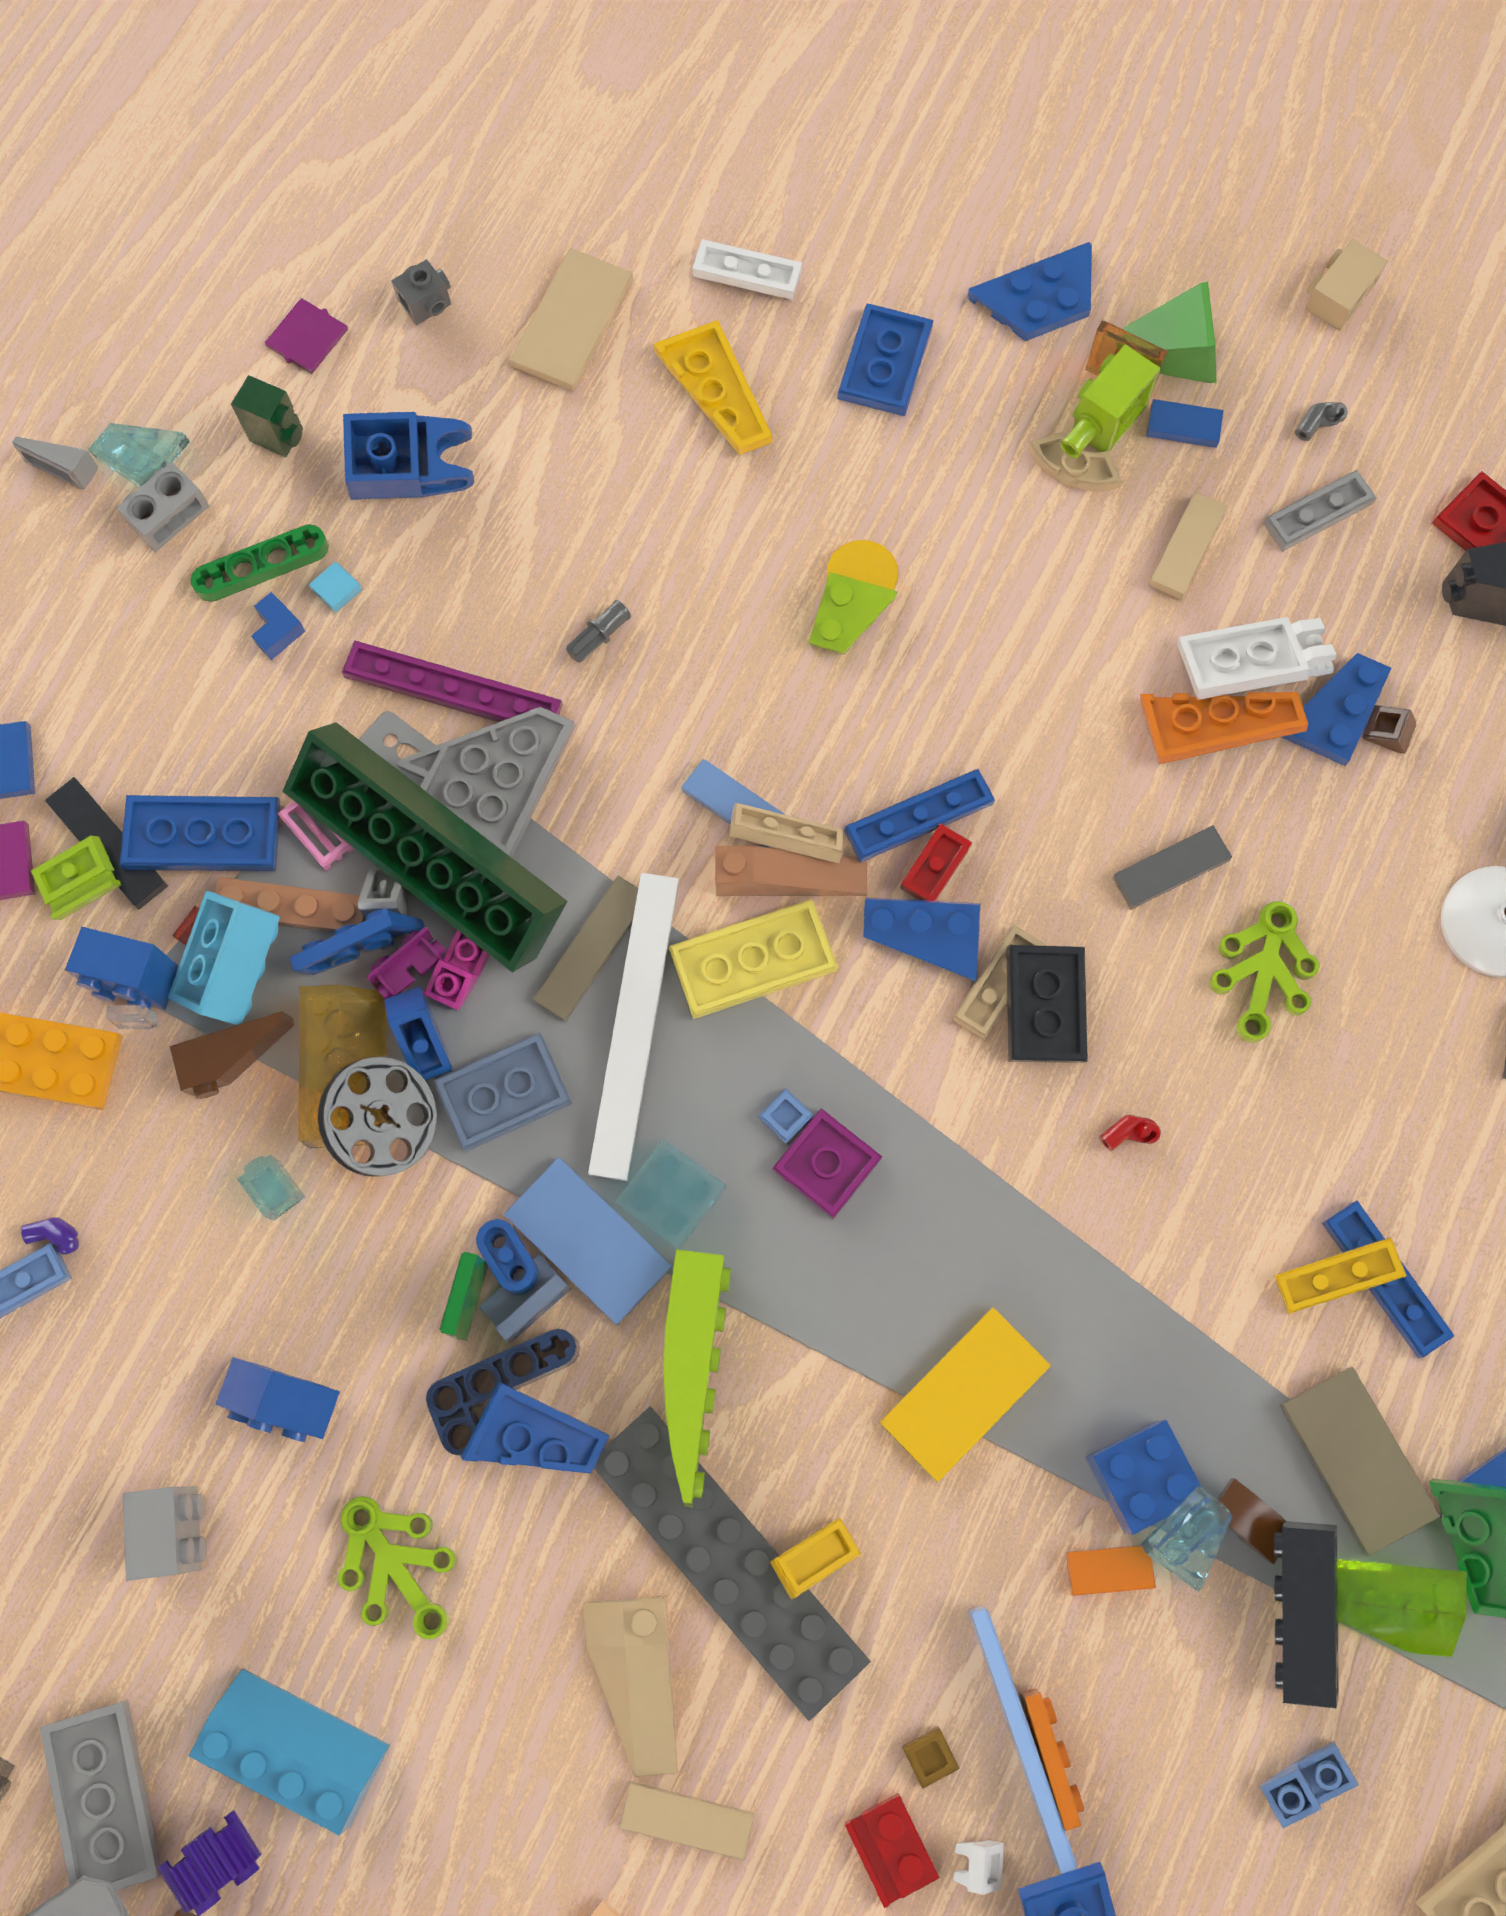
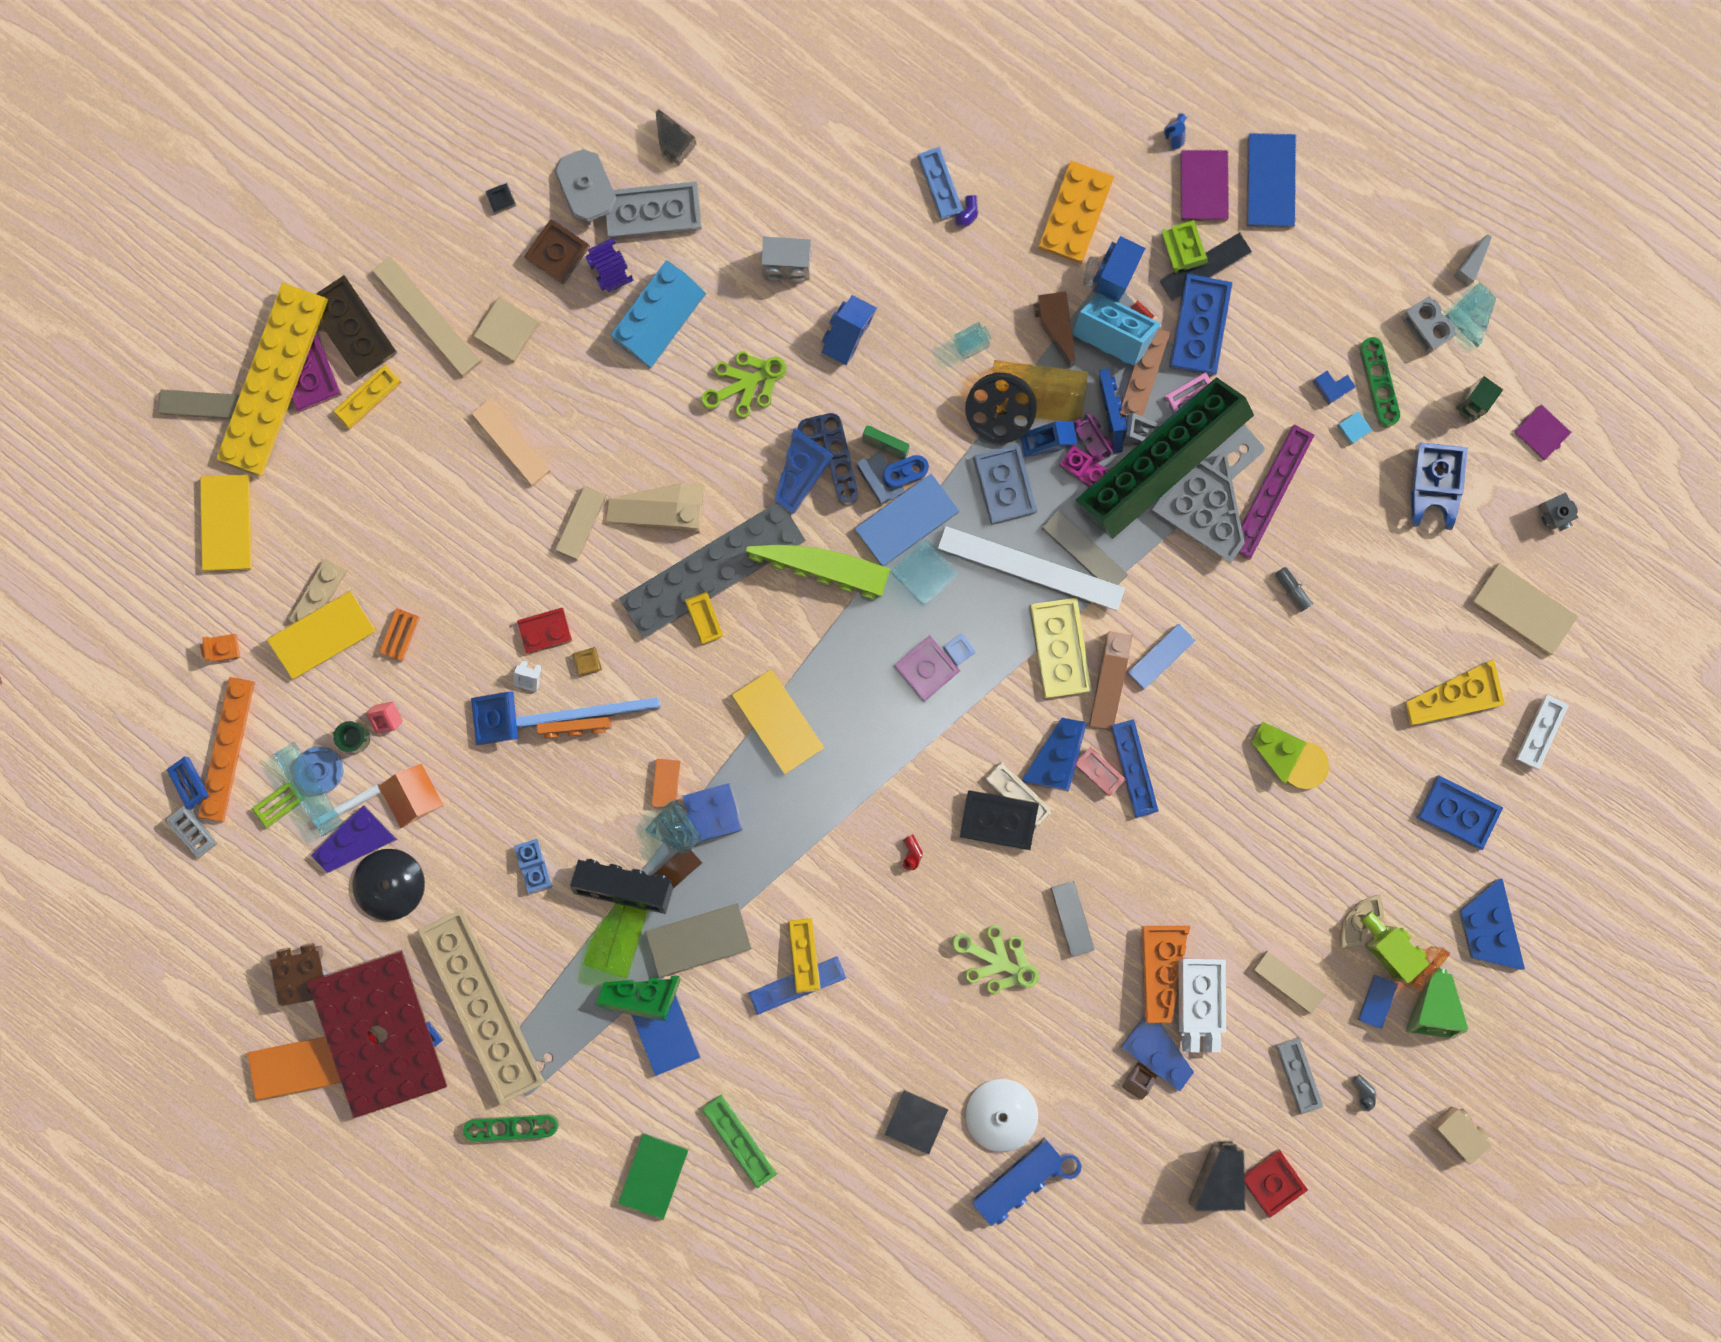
camera: 95 degrees right, 10 degrees up
(787, 833) = (1135, 681): tan tile -> none

